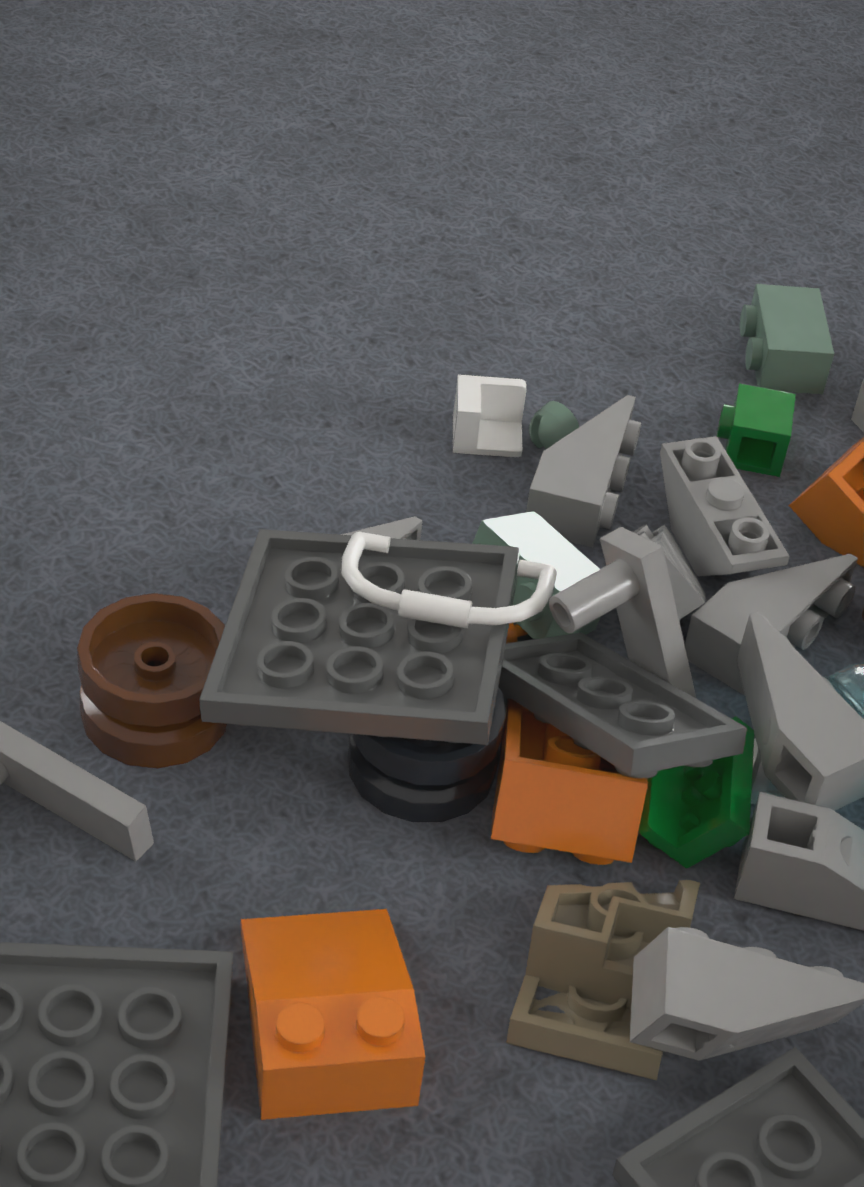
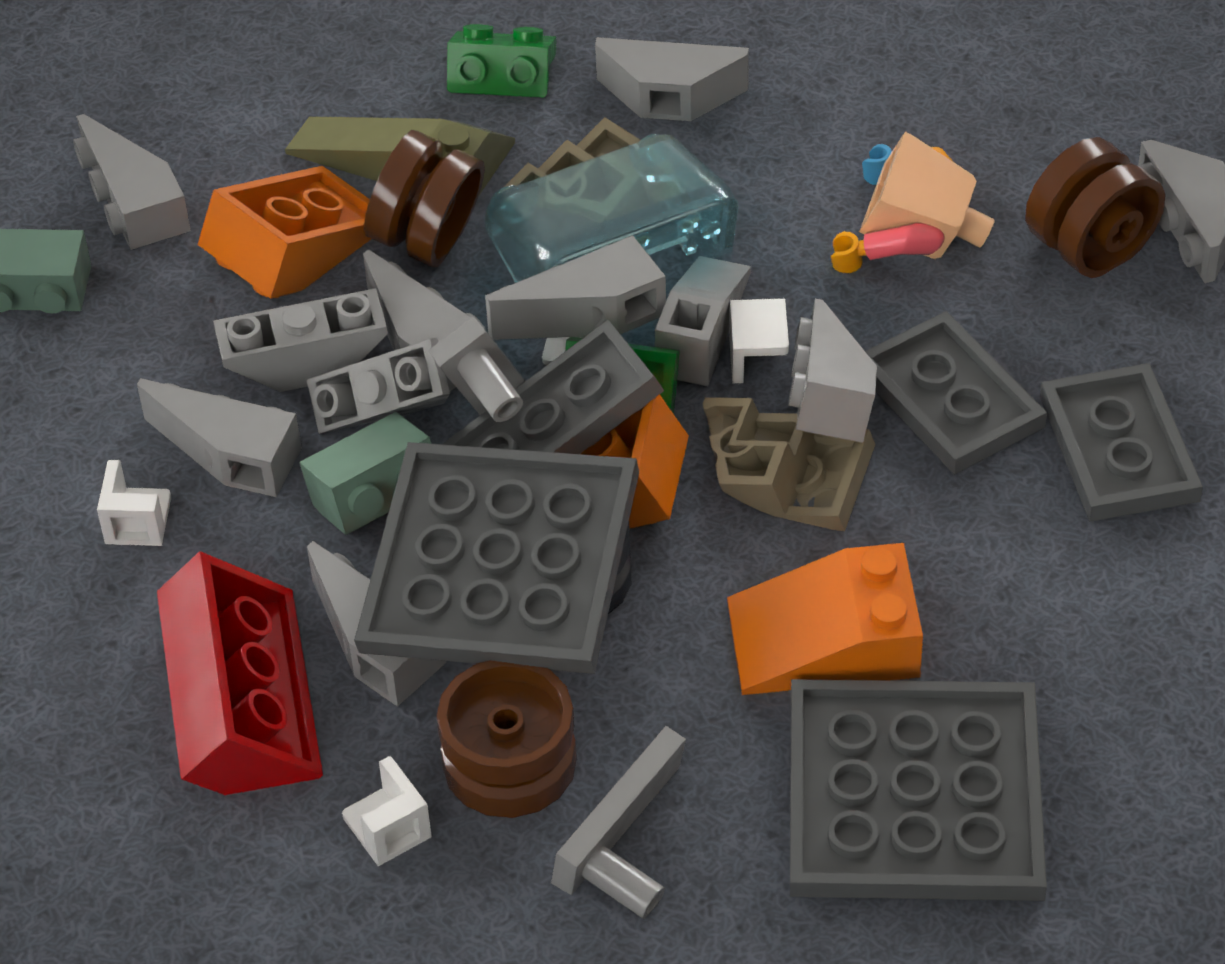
camera: 80 degrees left, 5 degrees up
(67, 608) = (391, 817): none -> white panel
(216, 491) = (236, 679): none -> red slope
(440, 608) = (495, 507): white piece -> none
(551, 424) = (141, 452): sand green hinge -> none
(758, 429) = (166, 306): green brick -> none
(809, 927) = (756, 329): none -> white panel

